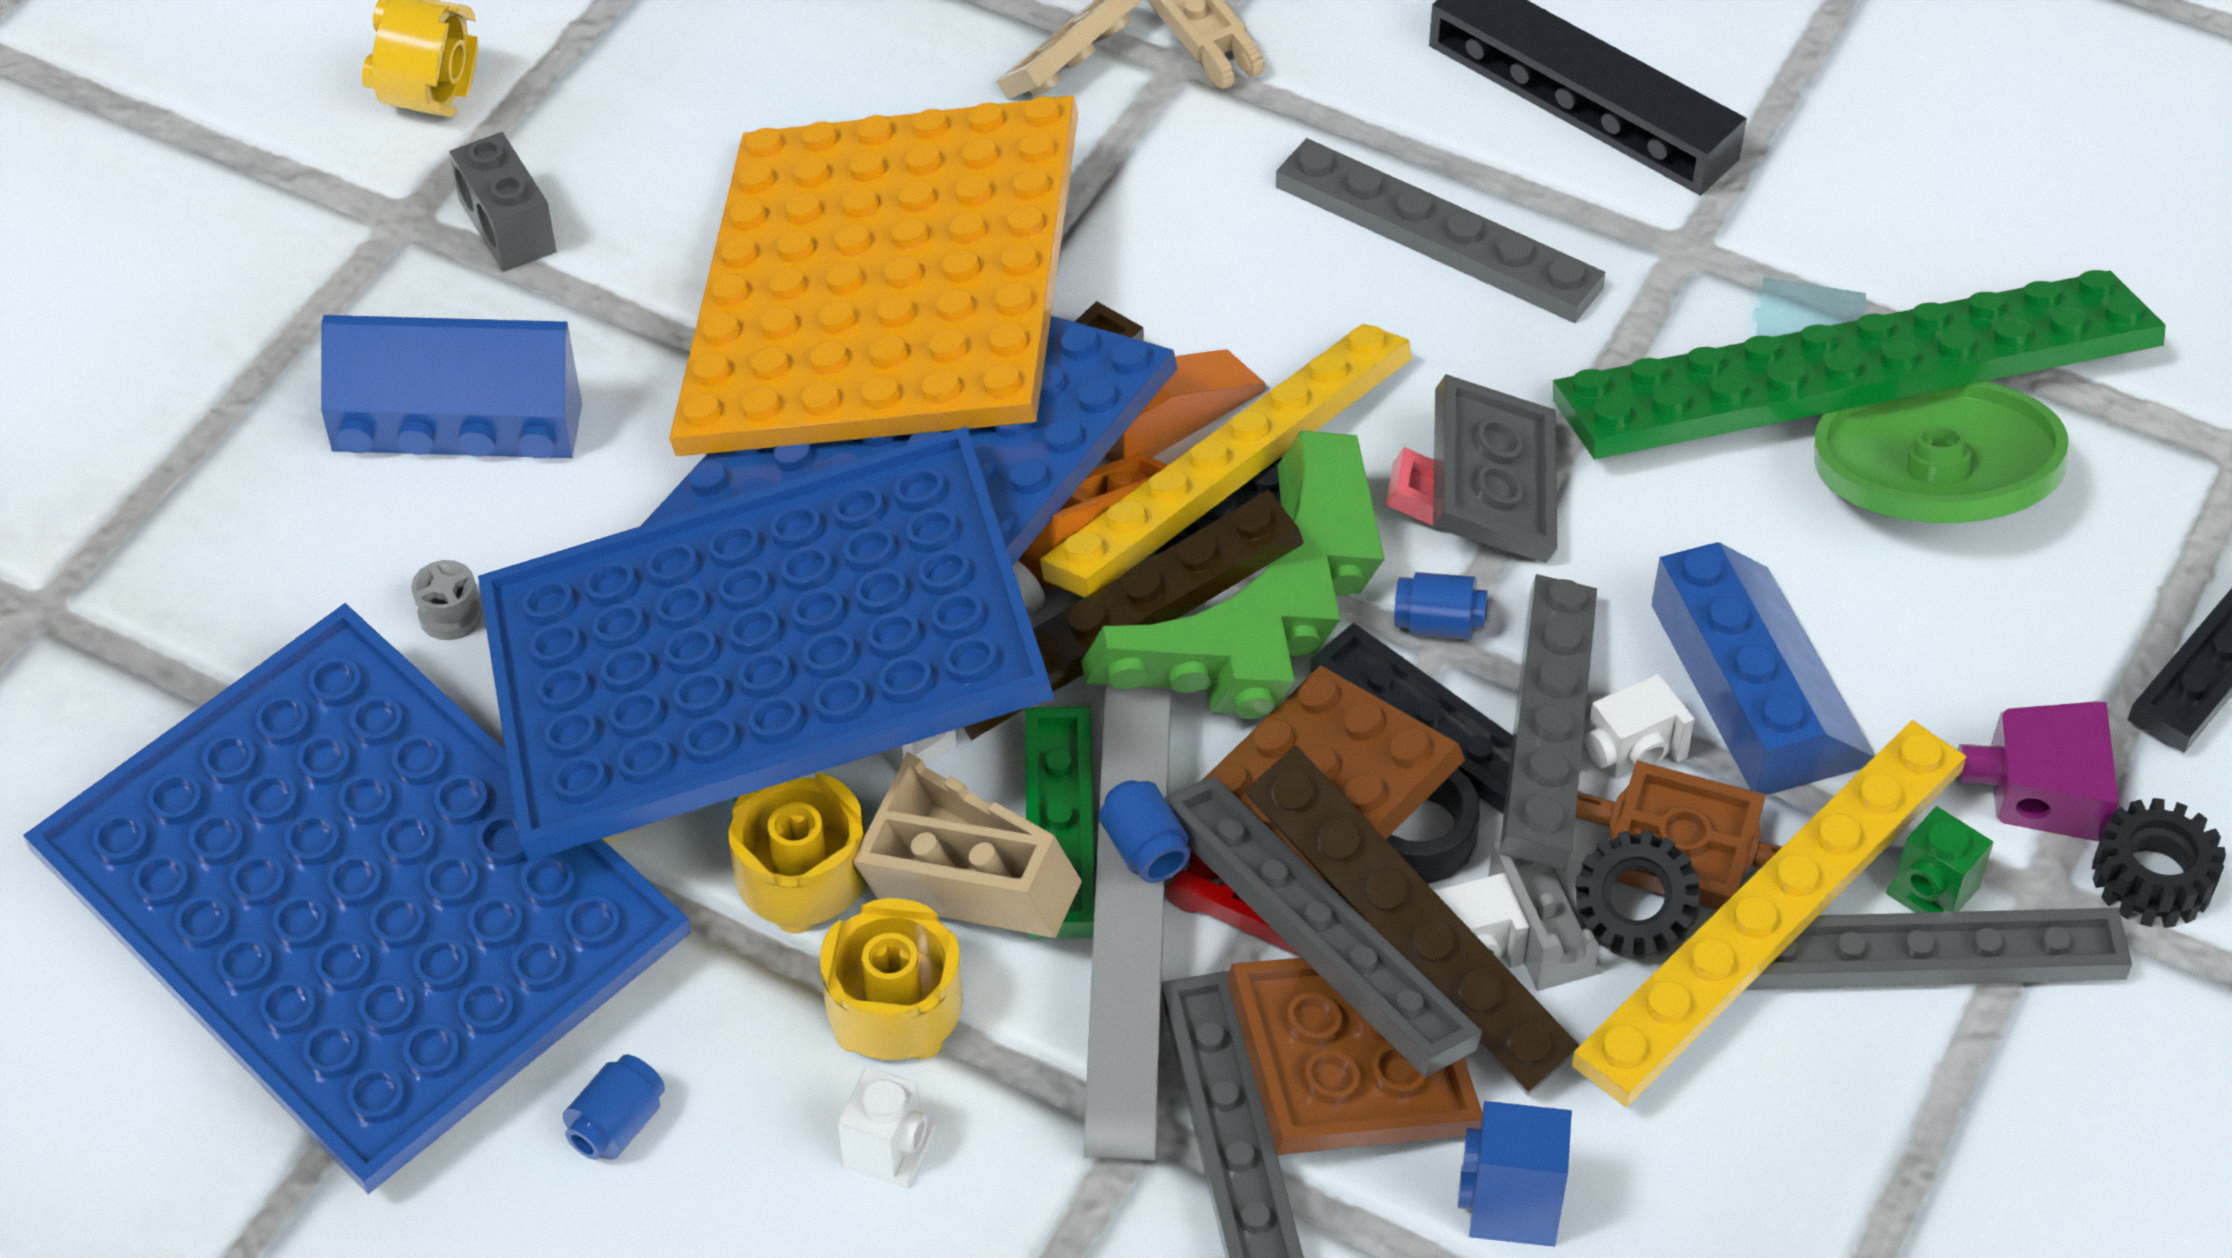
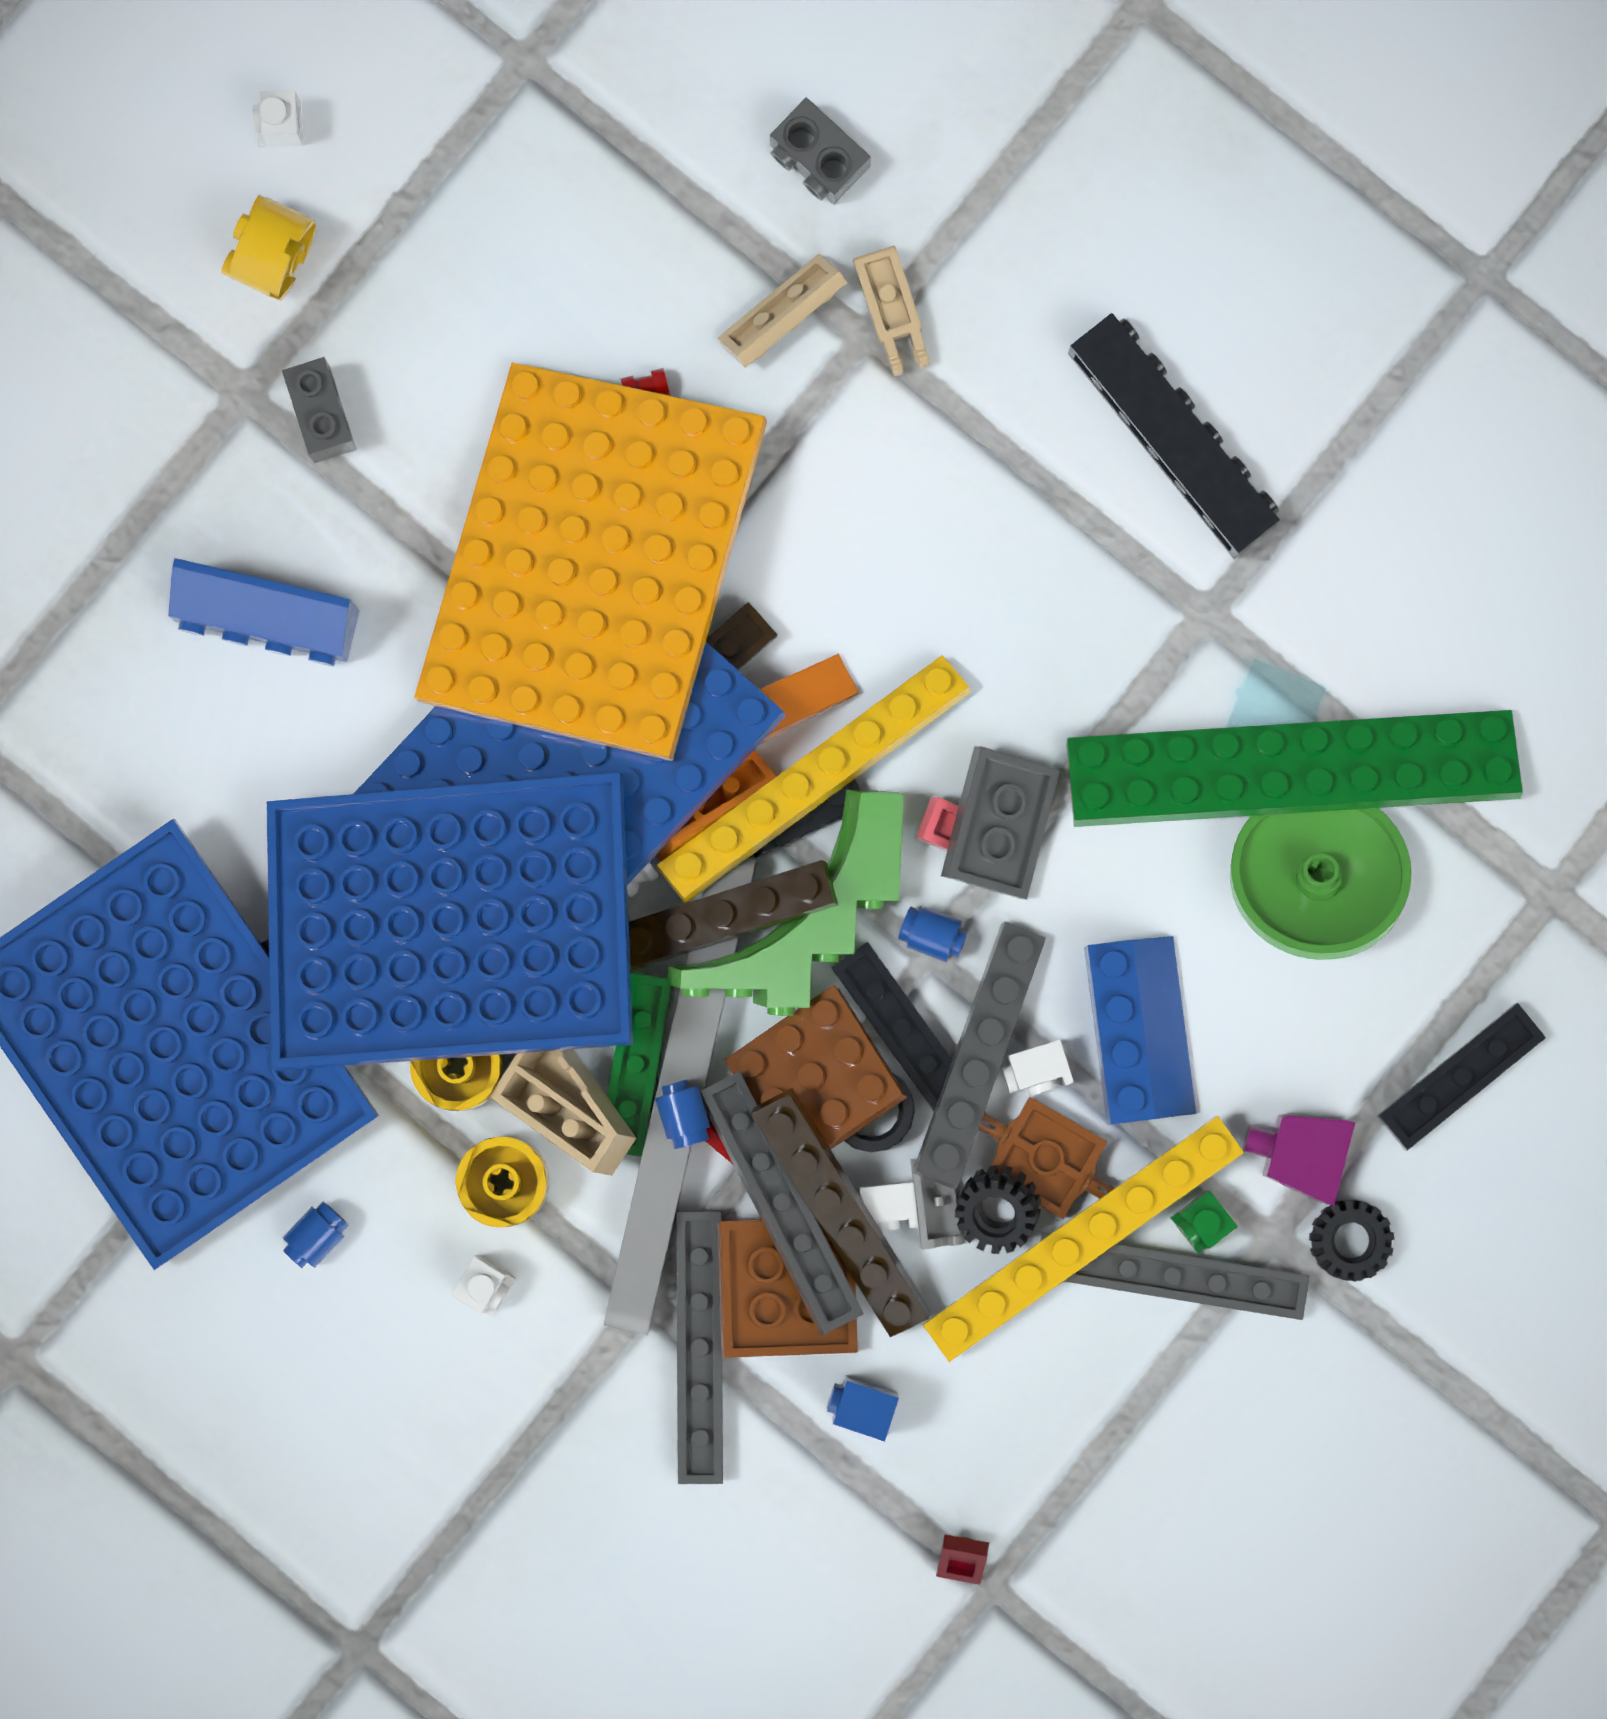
camera: 10 degrees right, 35 degrees up
(451, 584) = (240, 785): light grey wheel -> none
(1441, 230) = (1023, 562): dark grey plate -> none

